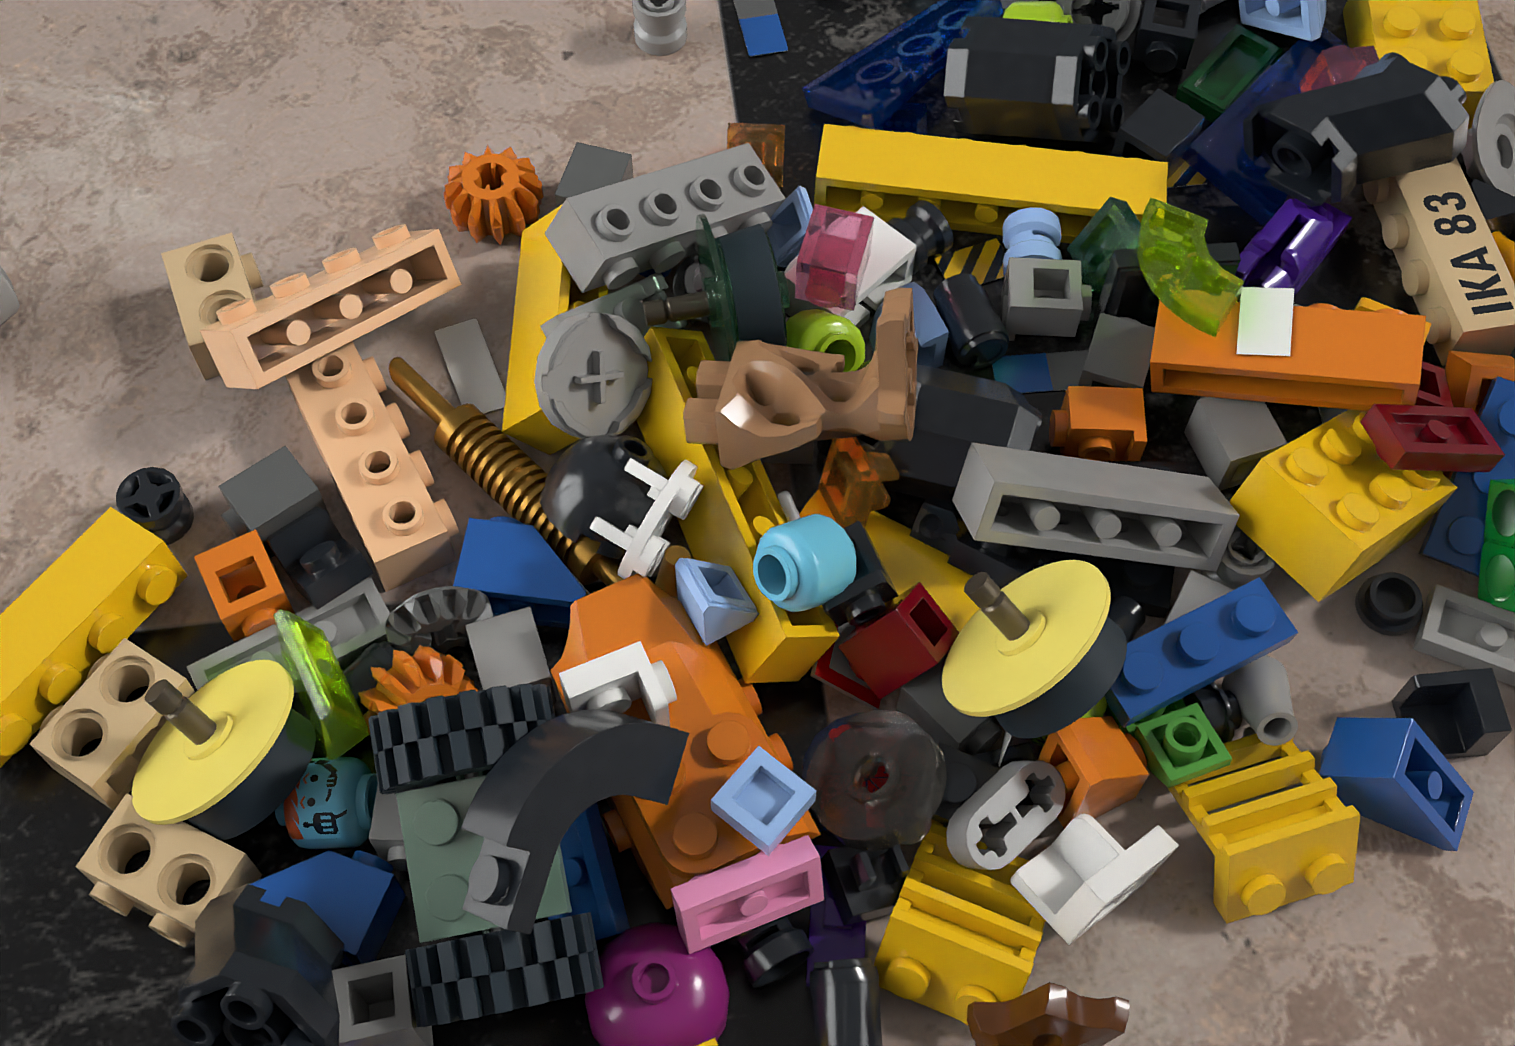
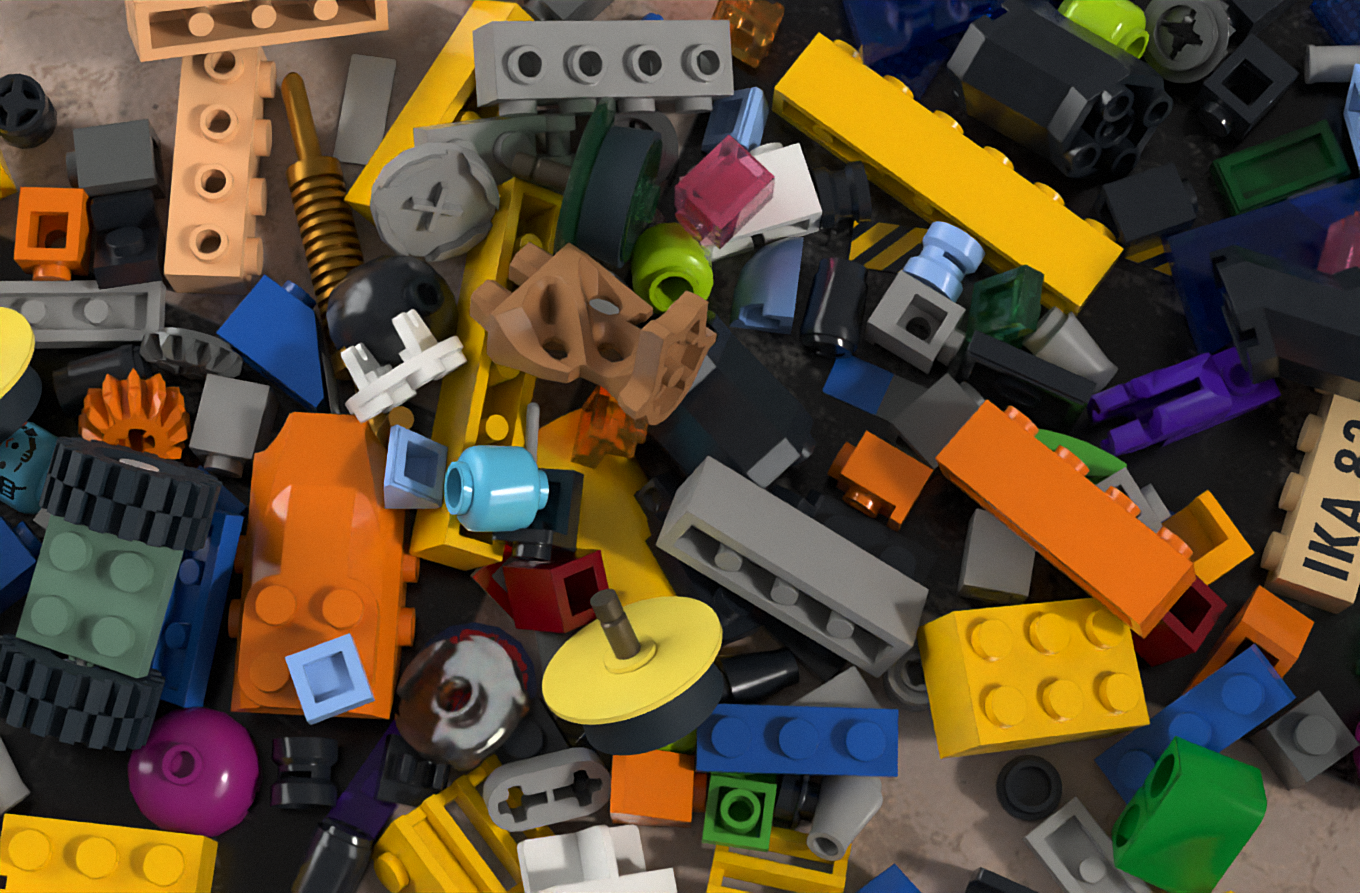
camera: 30 degrees right, 15 degrees up
(320, 684) = (60, 365): clear neon green slope -> none
(544, 788) = (166, 576): black arch -> none
(617, 680) = (266, 510): white bracket -> none
(748, 894) = (288, 740): bright pink plate -> none
(1182, 270) = (1016, 384): clear neon green tile -> none
(1265, 321) = (1055, 481): white sticker -> none
(1431, 438) = (1138, 672): dark red plate -> none

